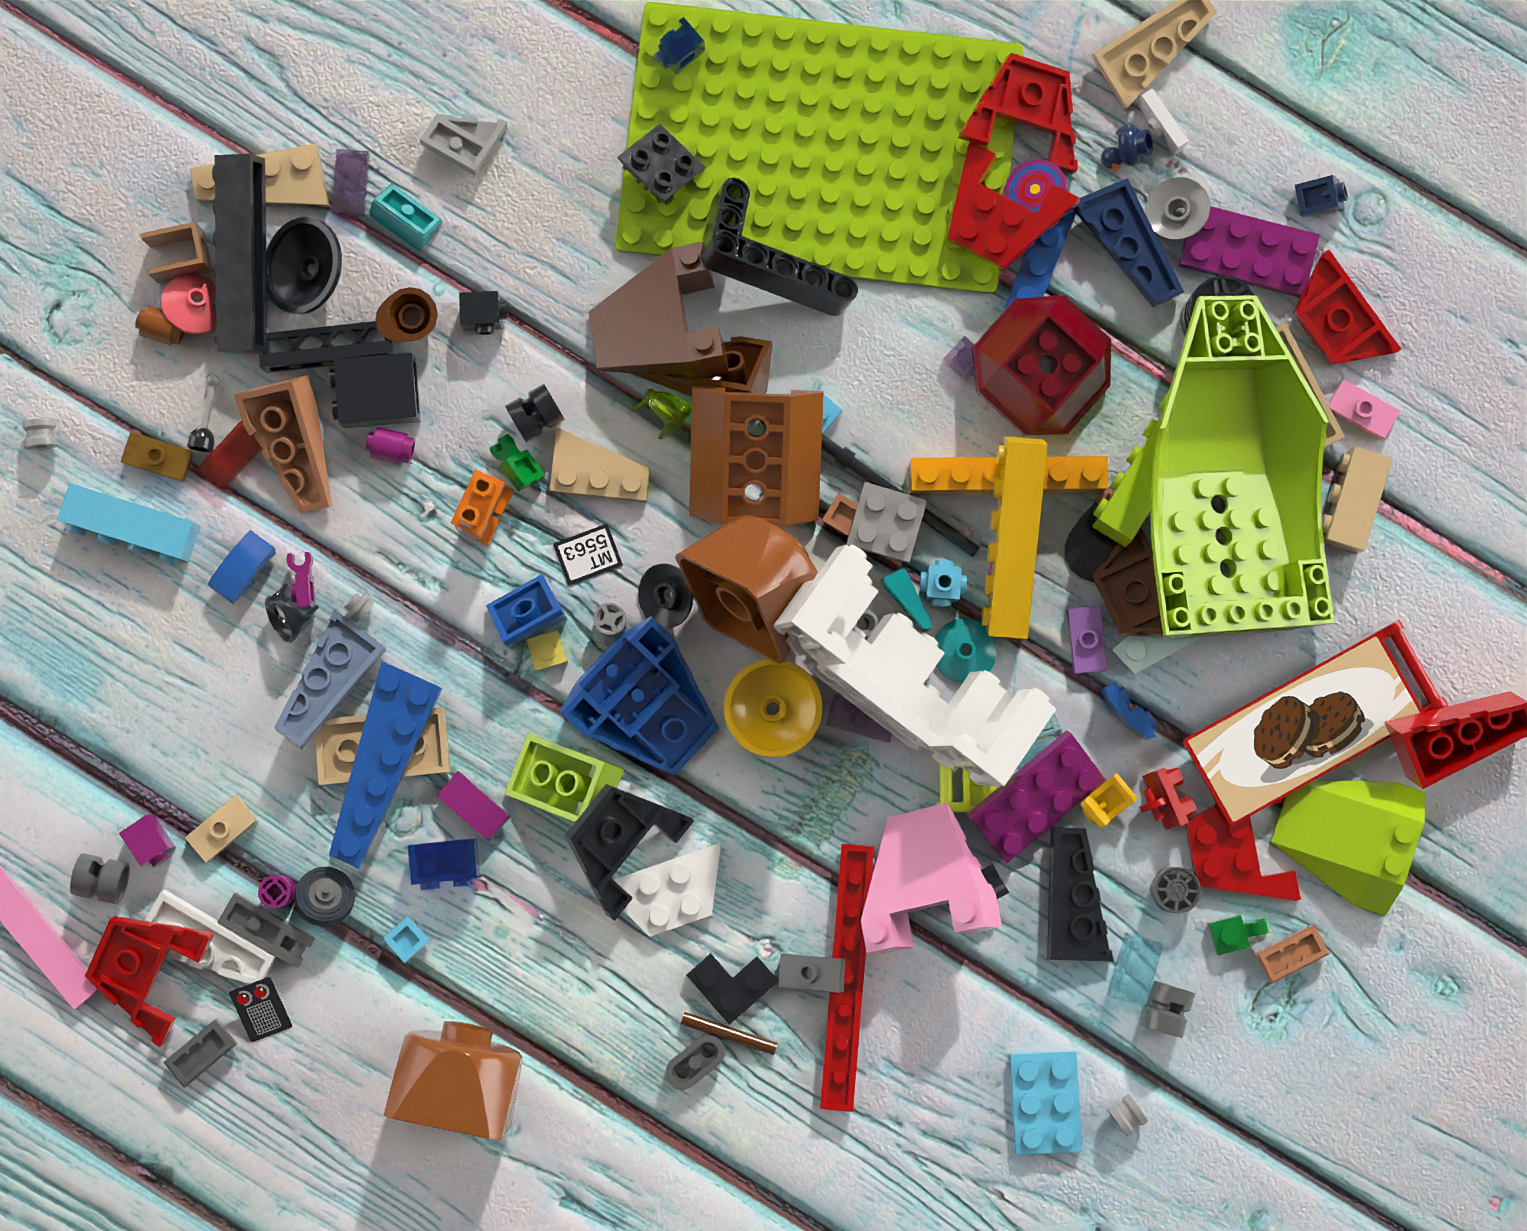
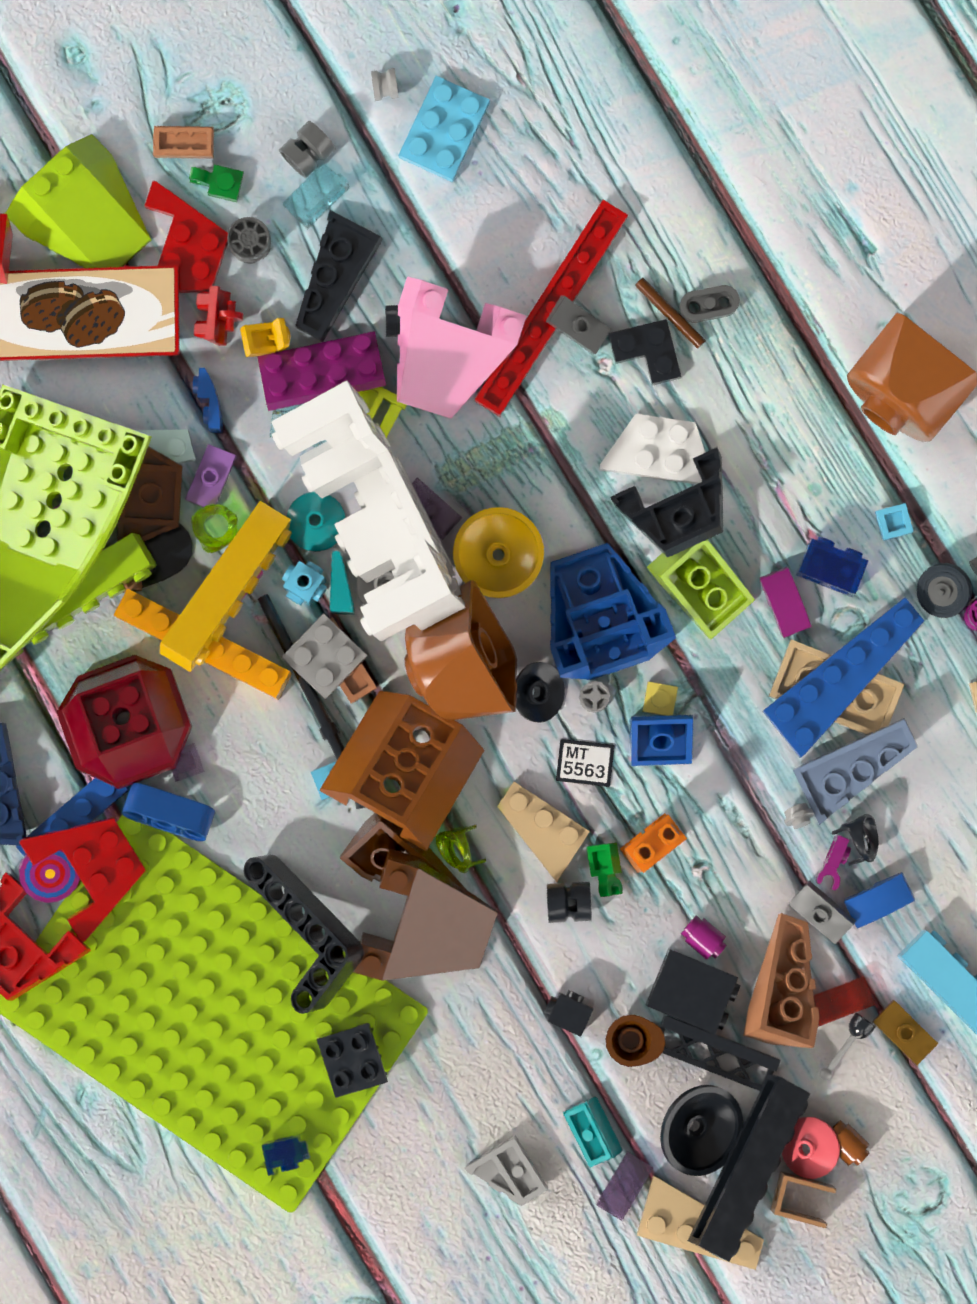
camera: 150 degrees left, 0 degrees up
(290, 527) = (822, 912): none -> plate
(955, 302) = (168, 812): none -> blue beam
(1054, 573) = (207, 542): none -> clear neon green piece

